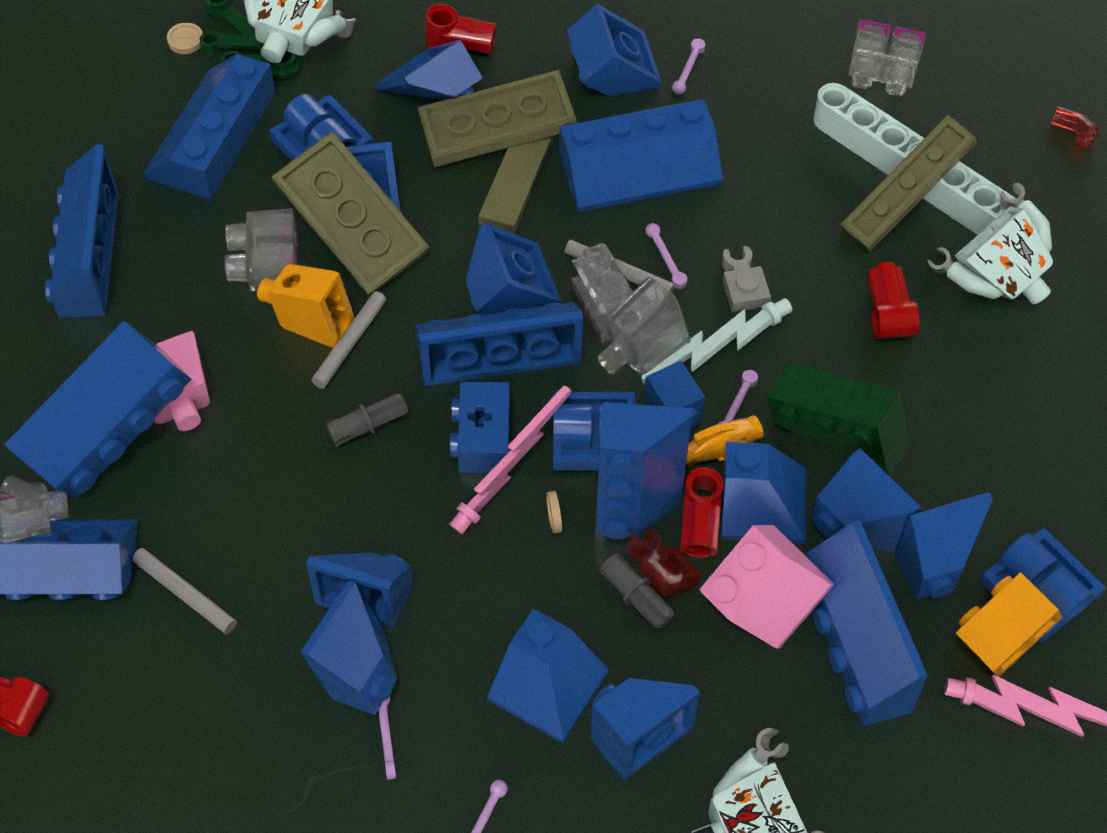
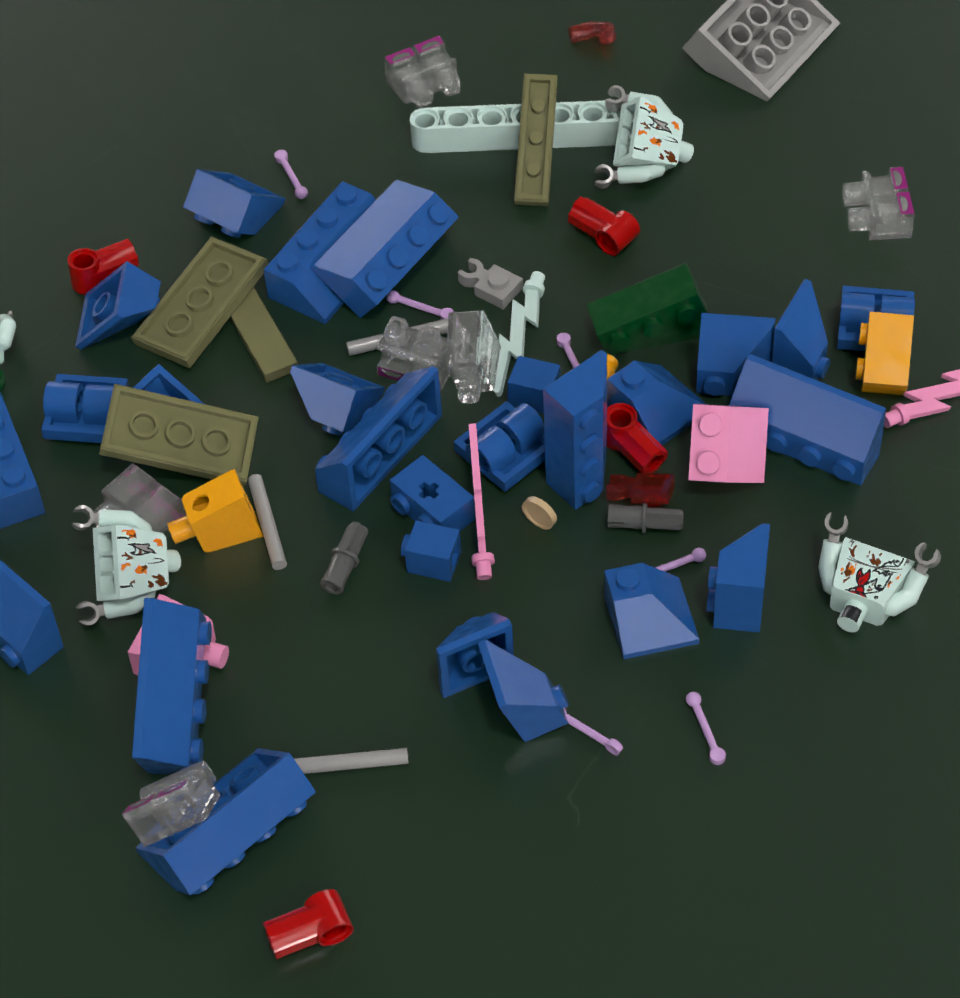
camera: 40 degrees left, 5 degrees down
(198, 285) = (128, 562): none -> light aqua torso
(435, 471) = (432, 550): none -> blue brick
(646, 663) = (697, 555): none -> lavender hinge
(681, 178) = (384, 244): none -> blue slope

